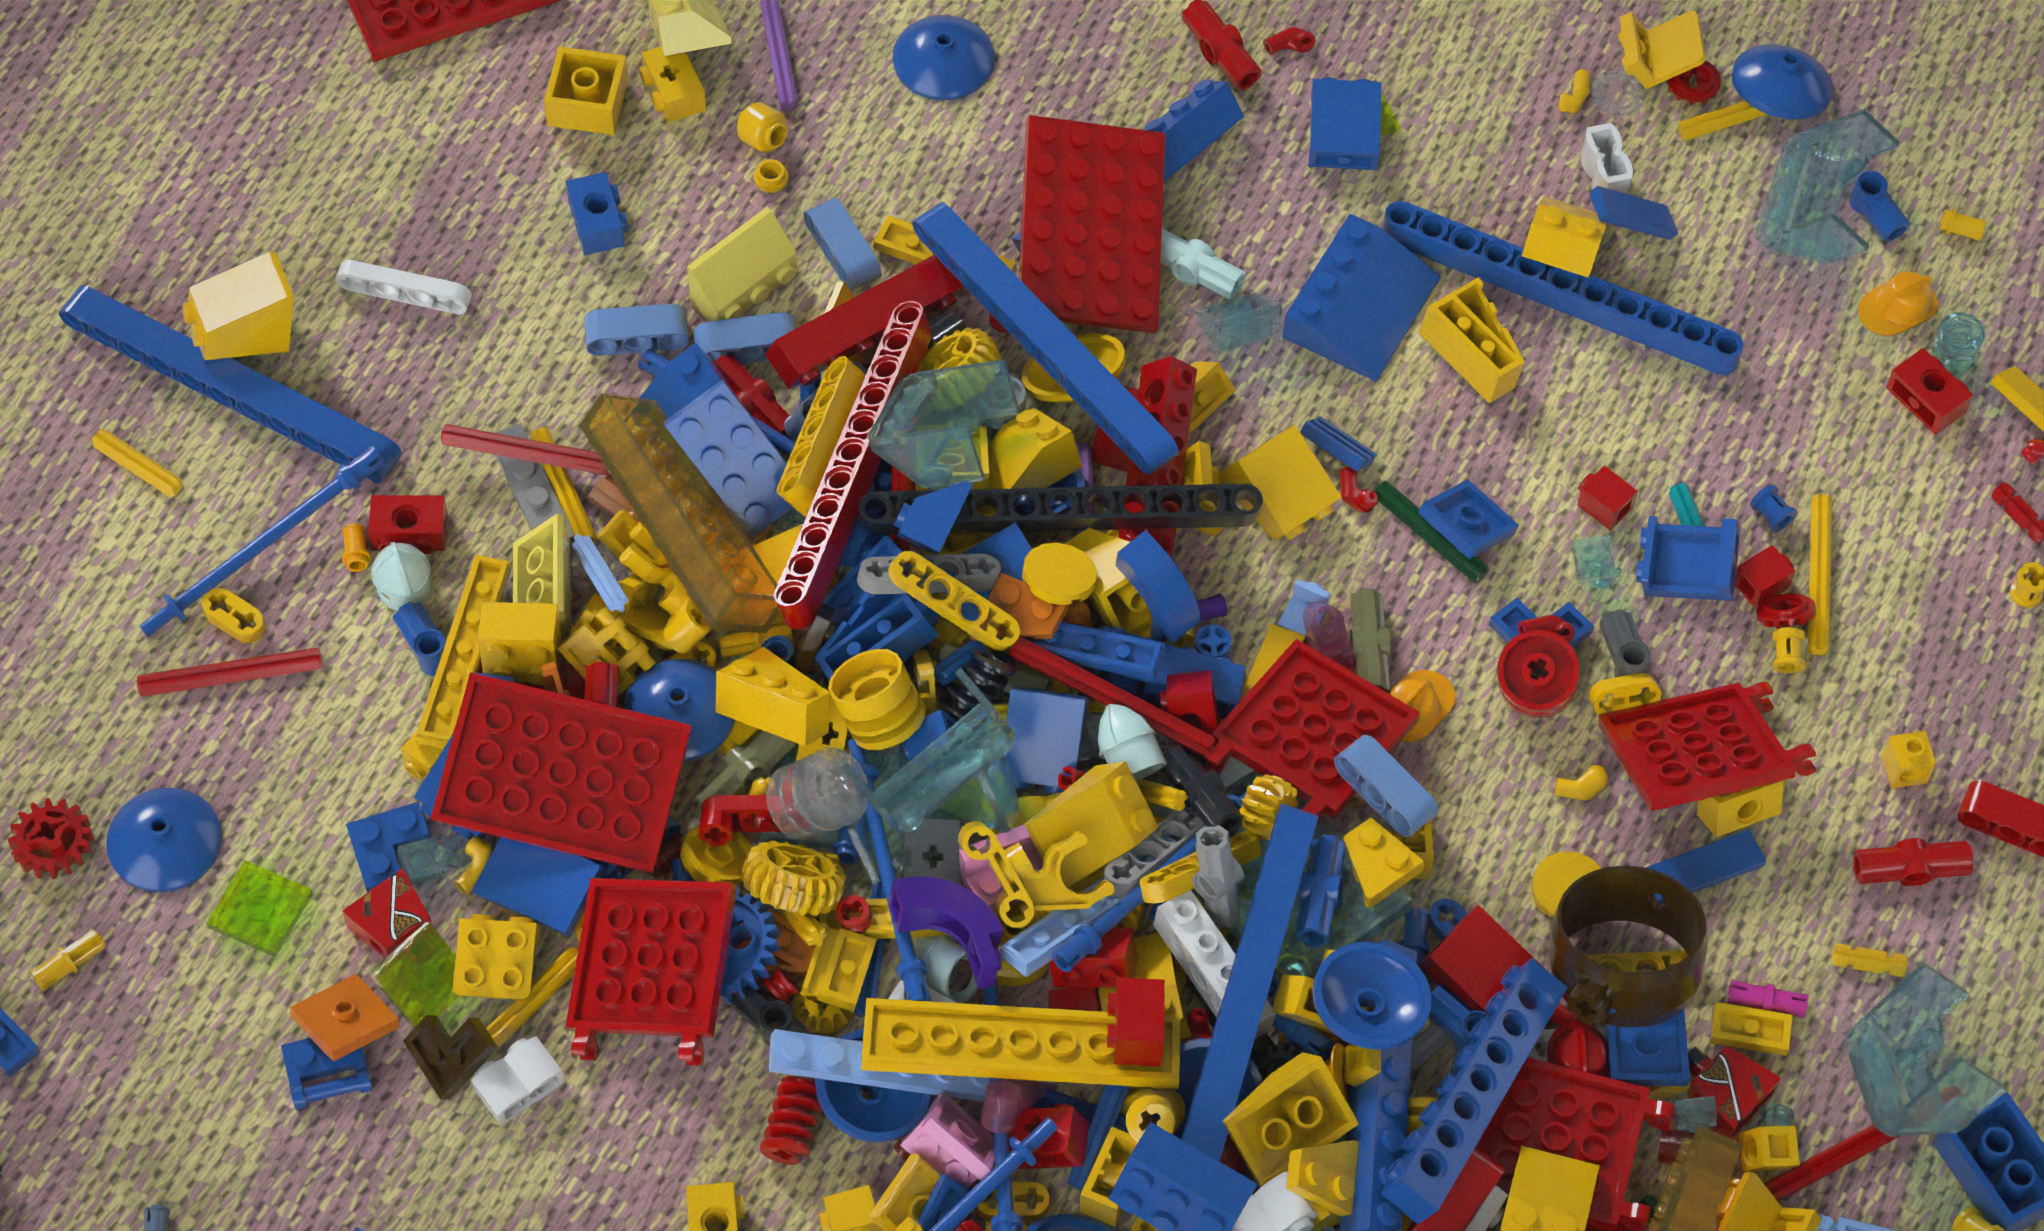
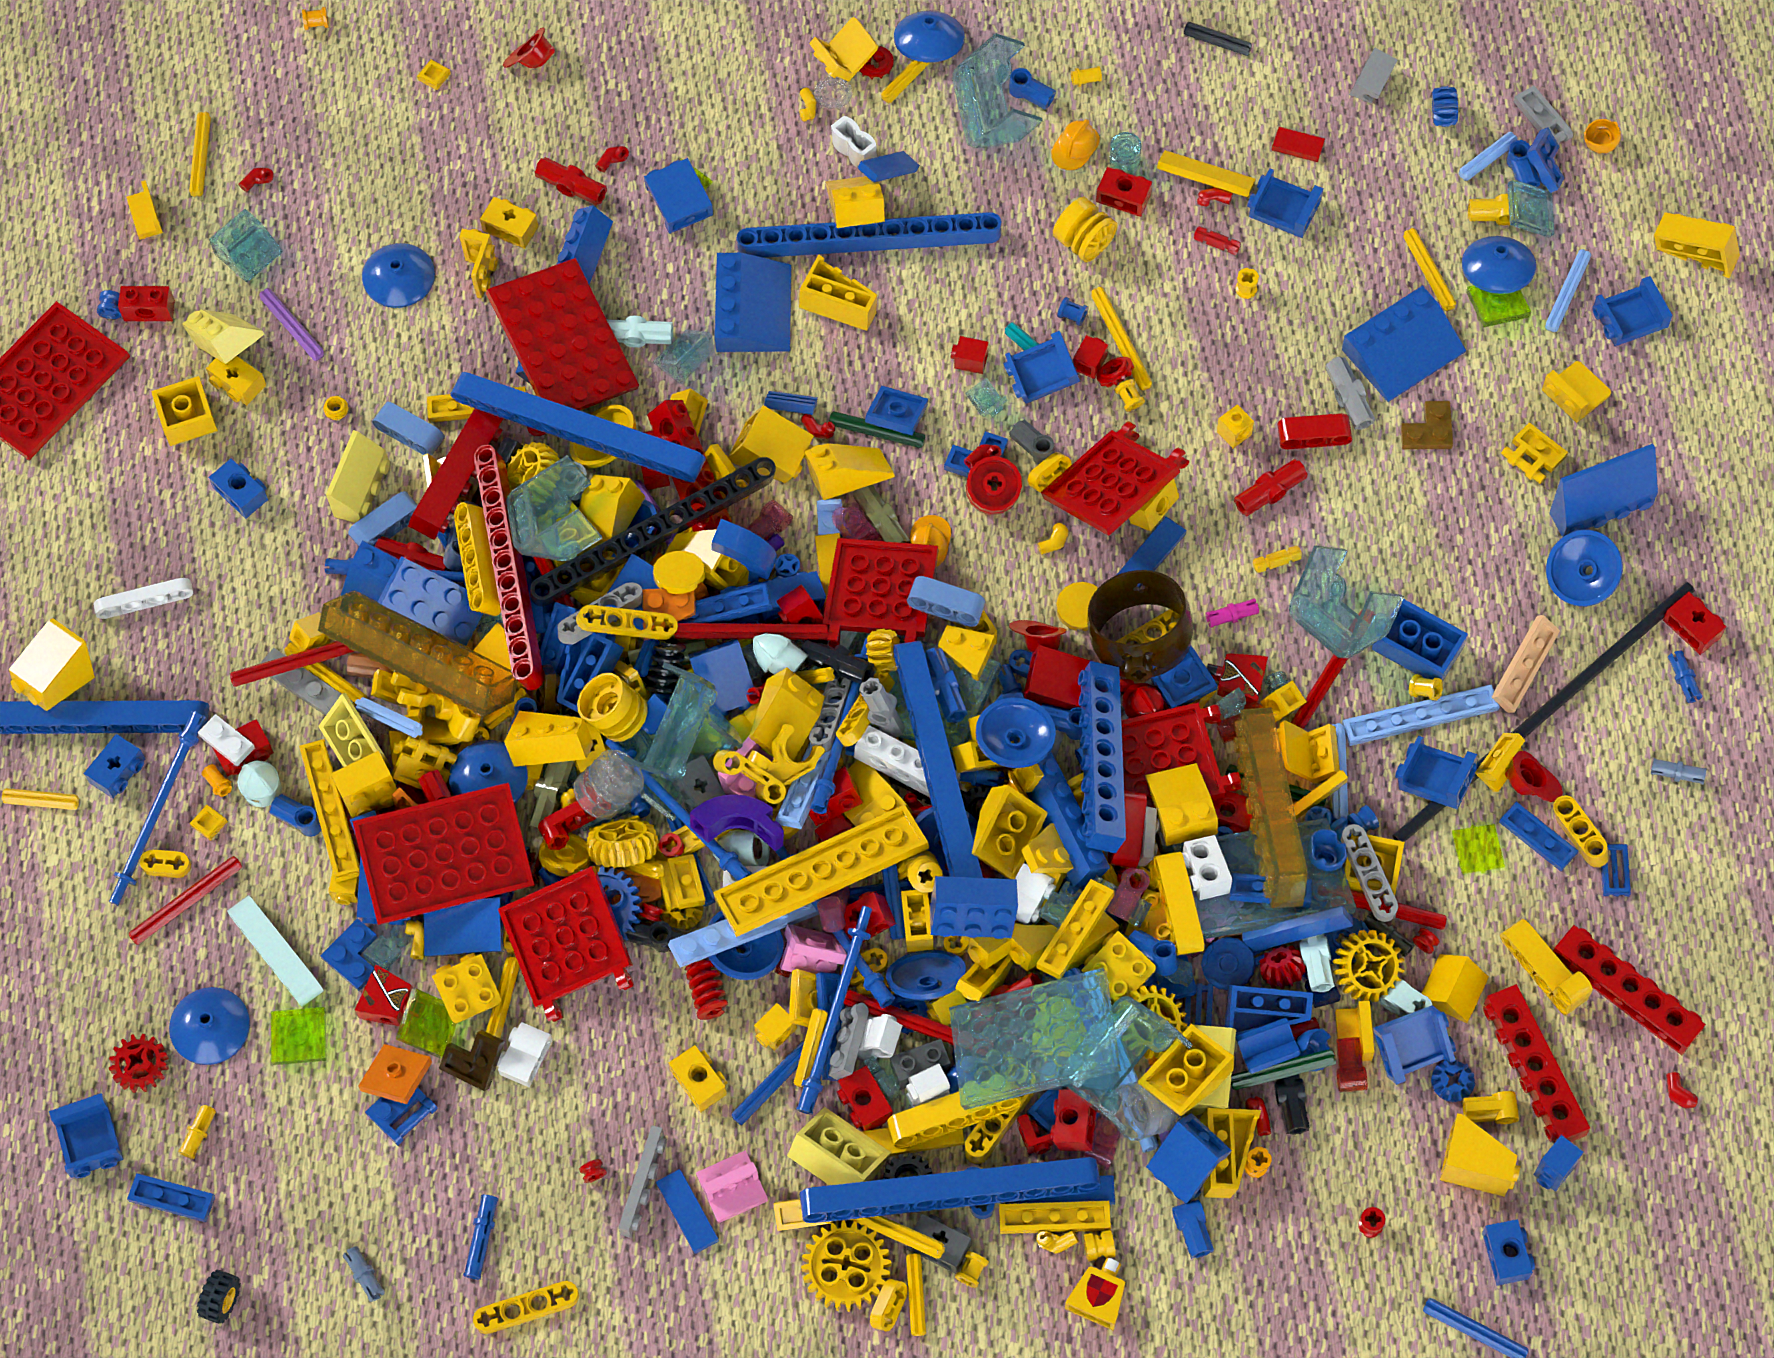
camera: 25 degrees left, 5 degrees up
(245, 468) = (115, 766): none -> blue brick
(295, 790) = (275, 951): none -> light aqua beam
(315, 593) = (208, 822): none -> yellow tile
(391, 502) = (226, 740): none -> white plate
(564, 423) = (306, 633): none -> yellow brick
(636, 329) = (310, 550): medium blue beam -> none
(762, 127) = (311, 378): yellow head -> none
(932, 517) = (585, 577): blue slope -> none
(1054, 79) = (479, 250): none -> yellow bracket
(1115, 57) = (509, 222): none -> yellow brick
(1138, 1021) = (885, 820): red brick -> none
(1228, 575) = (772, 519): none -> clear pink piece
(1360, 558) = (845, 468): none -> yellow slope
(1489, 892) = (1038, 633): none -> red piece
(1750, 1028) = (1232, 636): yellow plate -> none
(1847, 411) = (1085, 229): none -> yellow wheel

